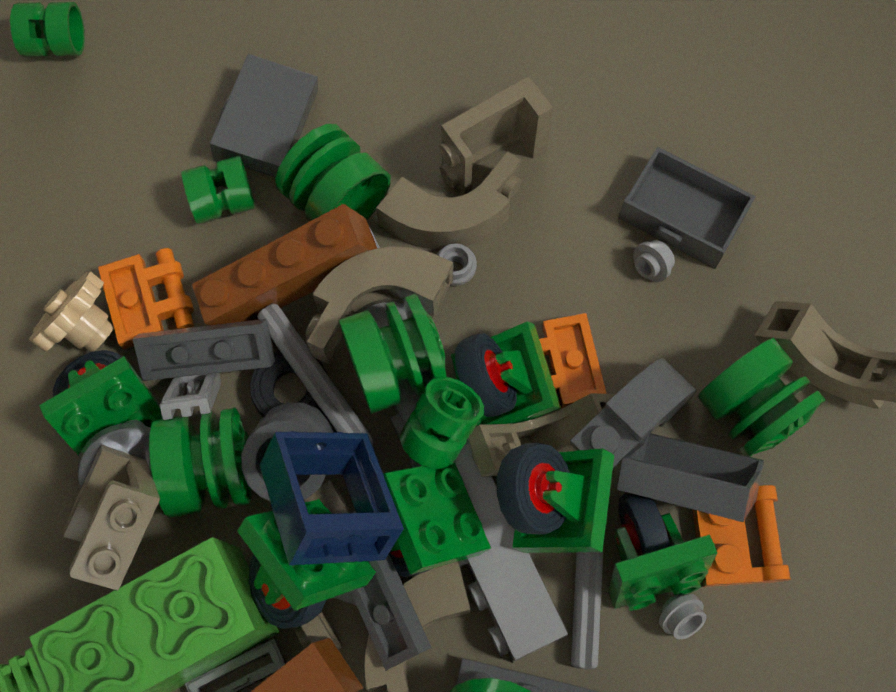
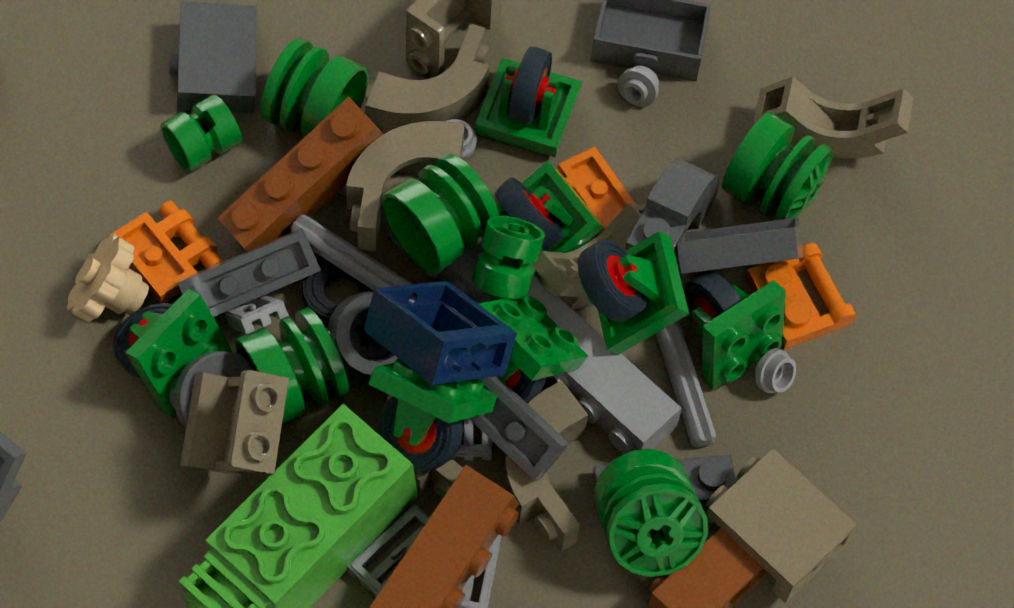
camera: 25 degrees left, 10 degrees down
(538, 249) = (528, 103): none -> green plate

